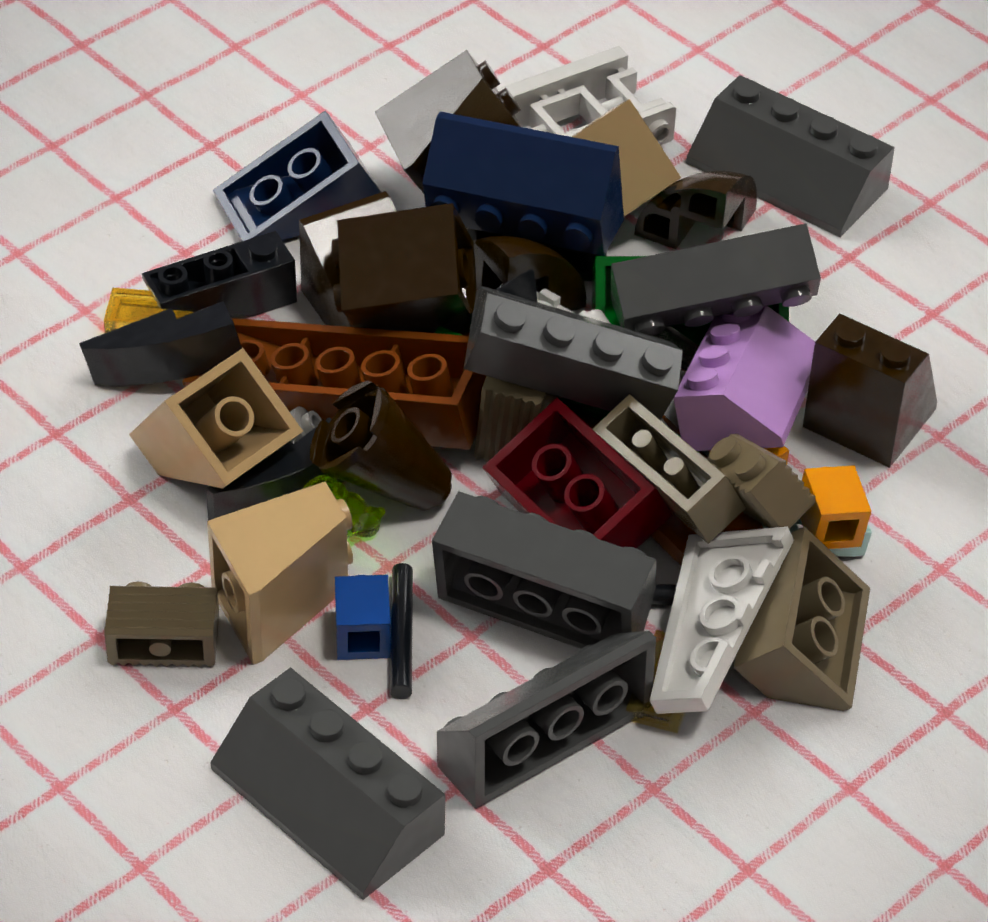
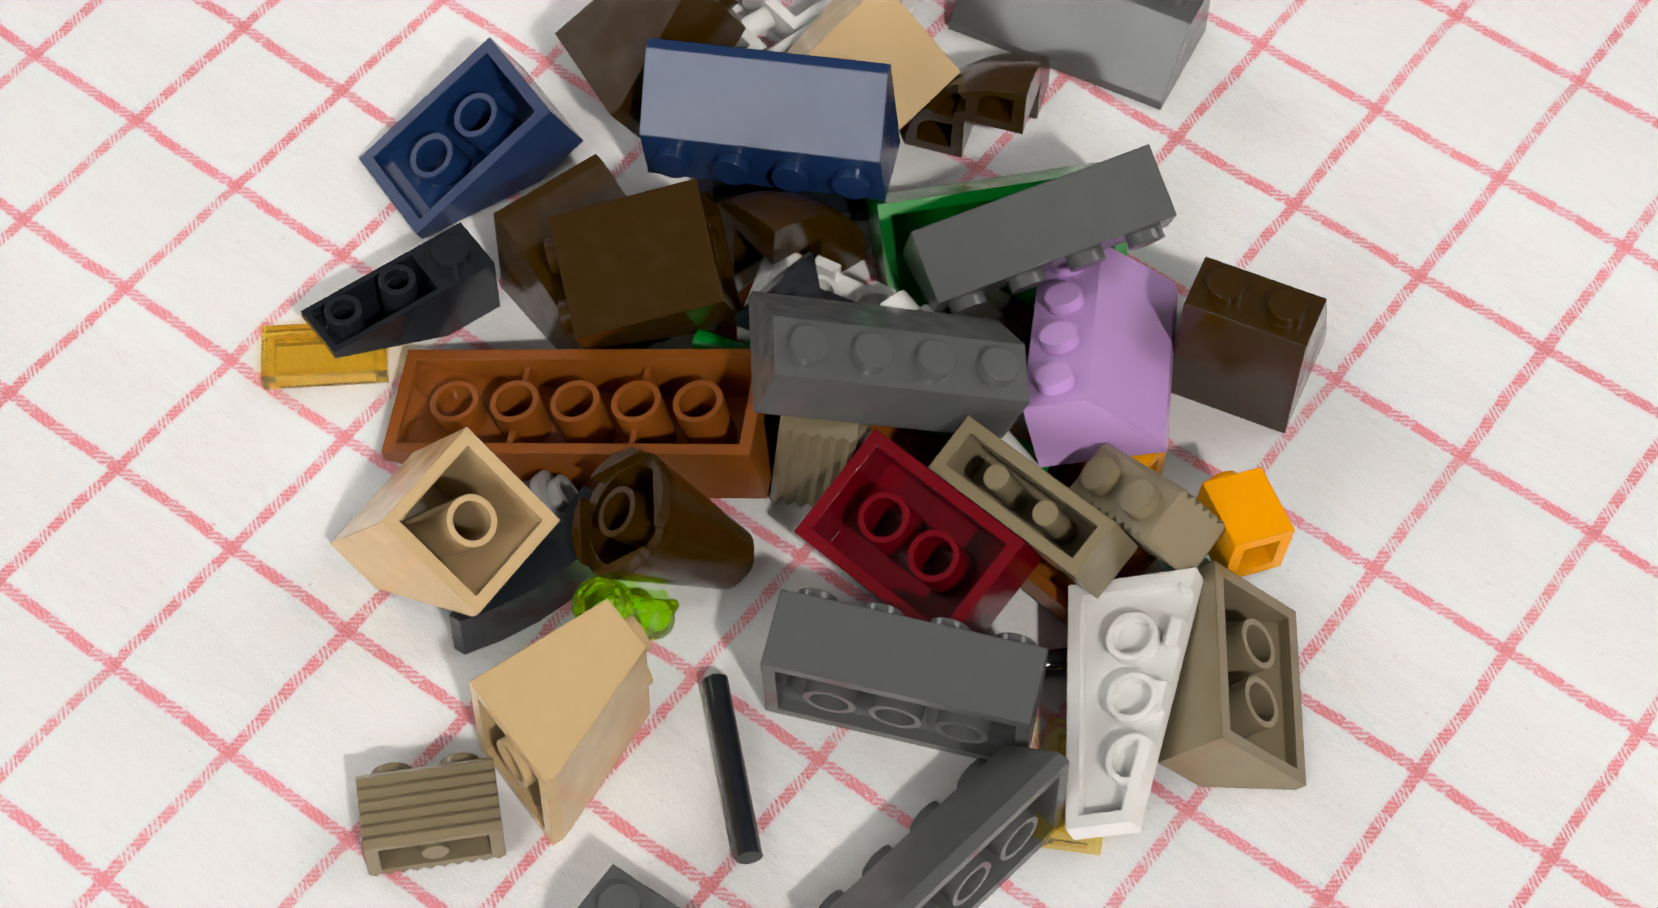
camera: 10 degrees left, 10 degrees up
(162, 347) = (351, 412): black slope -> none
(362, 617) = (681, 761): blue brick -> none

